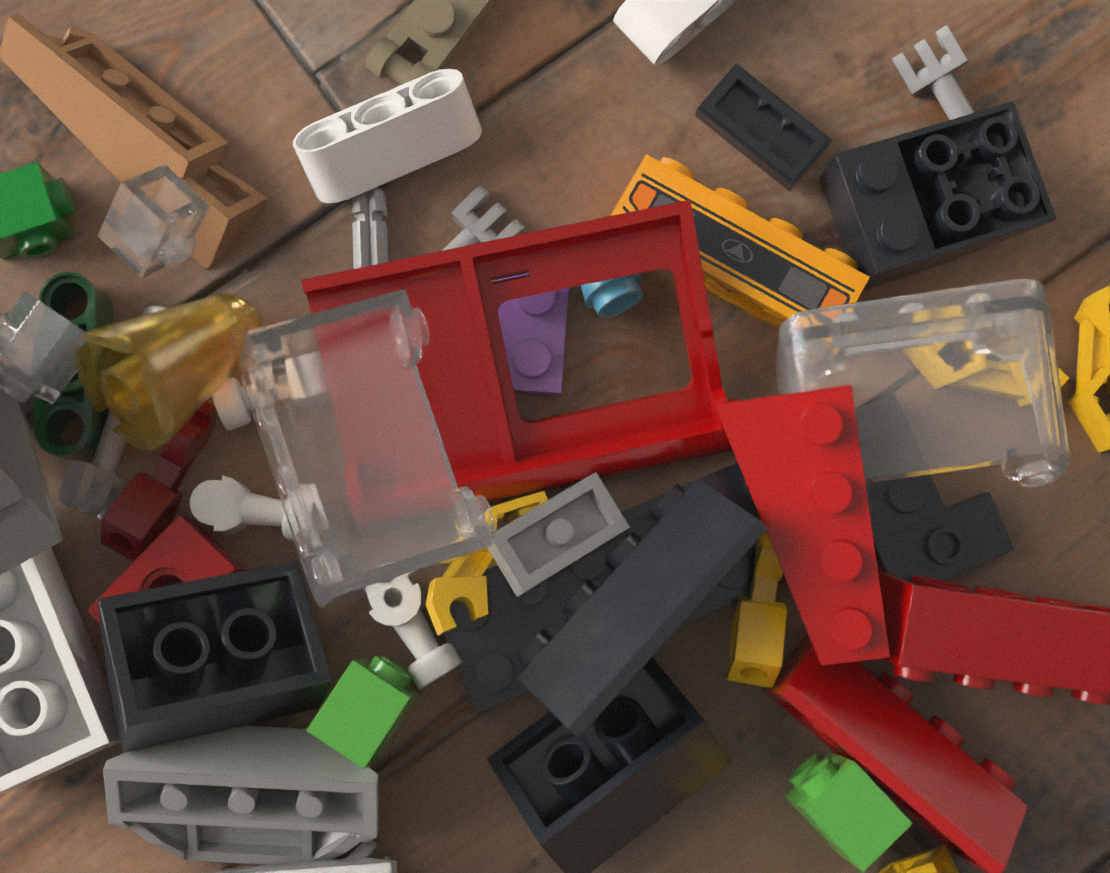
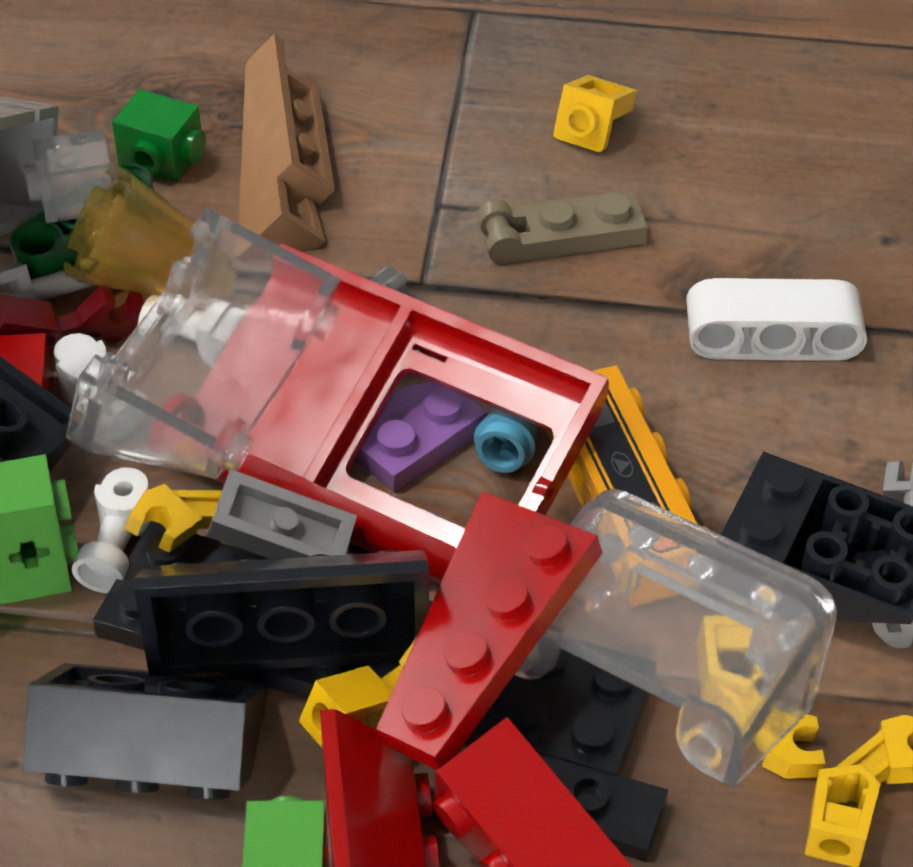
camera: 45 degrees right, 35 degrees down
(153, 221) = (233, 181): clear brick -> none
(388, 136) = (445, 248): white beam -> none
(763, 127) = (731, 428): black plate -> none

